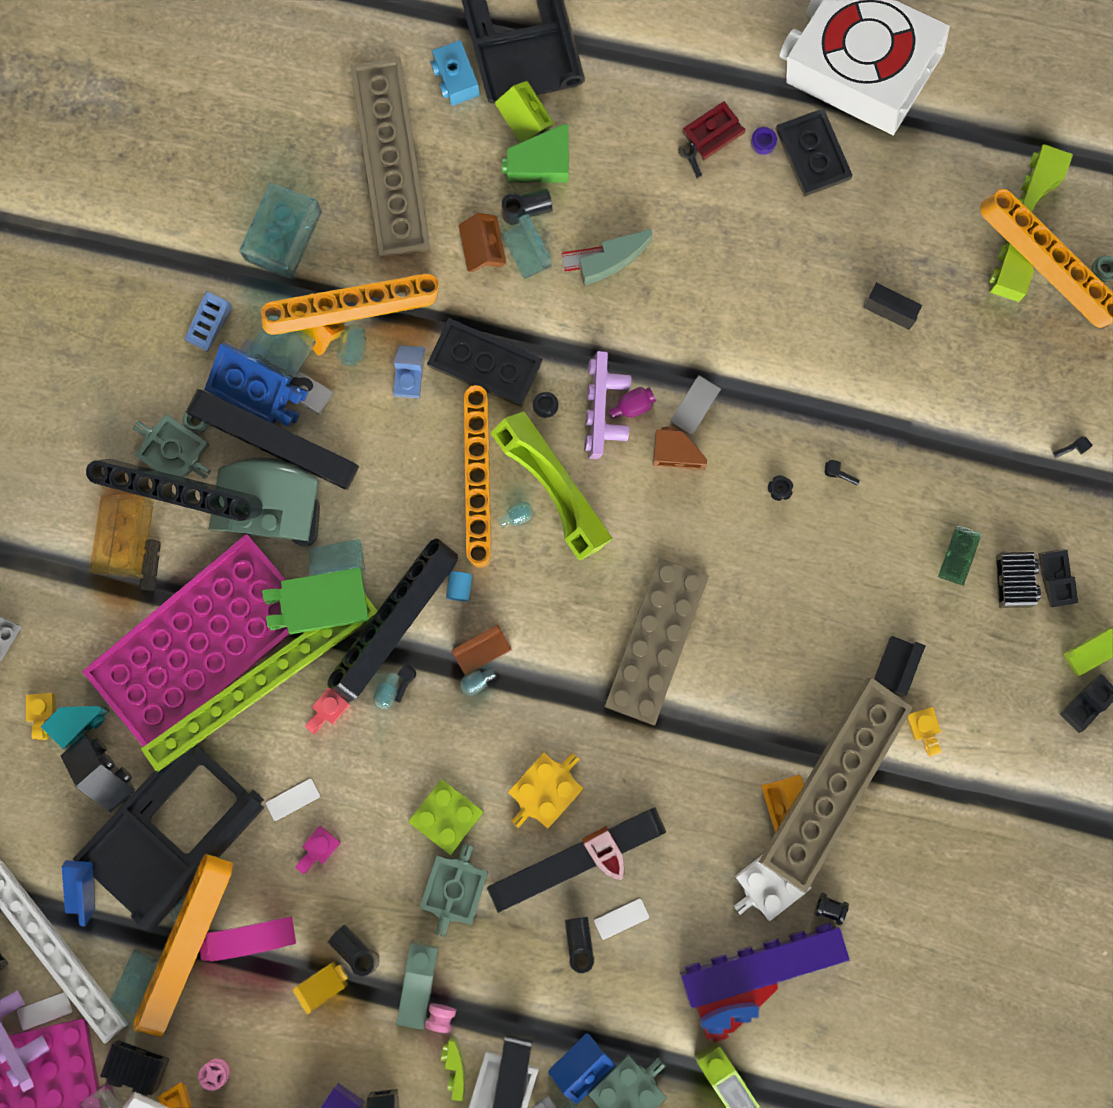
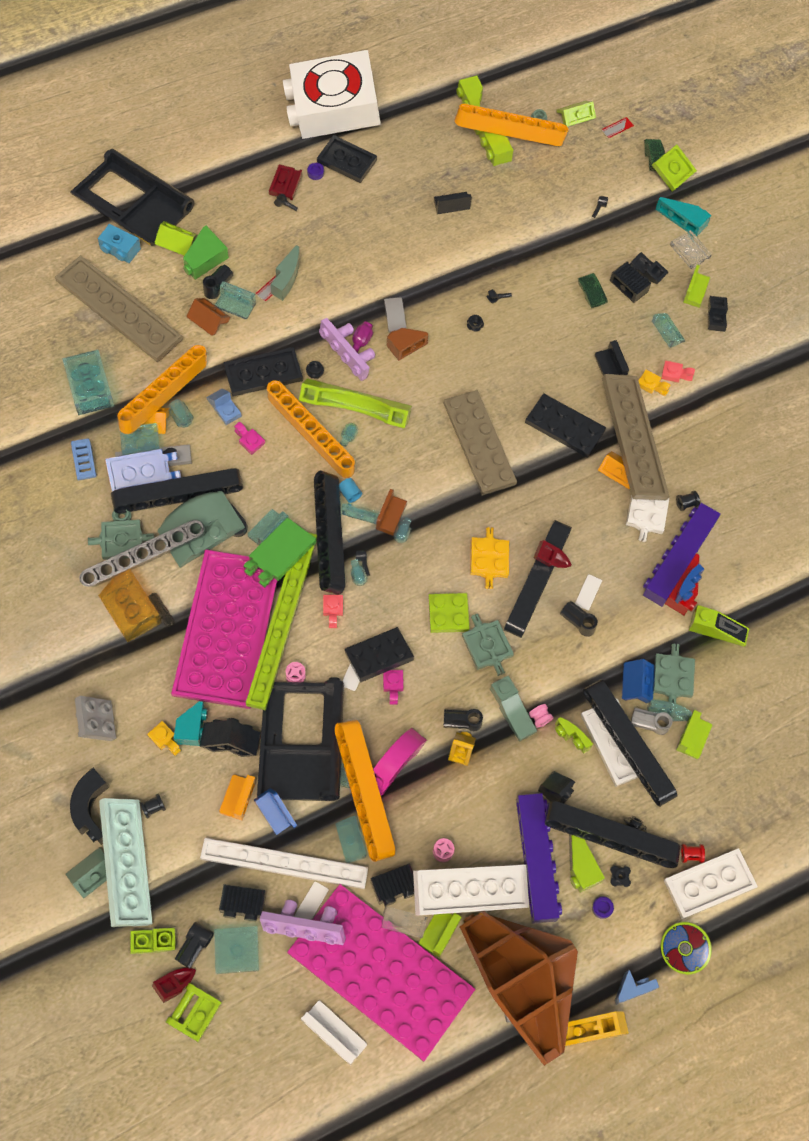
camera: 50 degrees left, 15 degrees down
(61, 838) = (238, 796): none -> light orange panel
(220, 753) = (294, 669): none -> bright pink wheel
(329, 804) = (379, 654): none -> black plate
(403, 437) = (249, 440): none -> dark pink plate
(451, 620) = (360, 512): none -> clear light blue slope
(774, 699) = (565, 425): none -> black plate
(965, 736) = (673, 372): none -> coral plate
(1008, 676) = (667, 329): none -> clear light blue slope

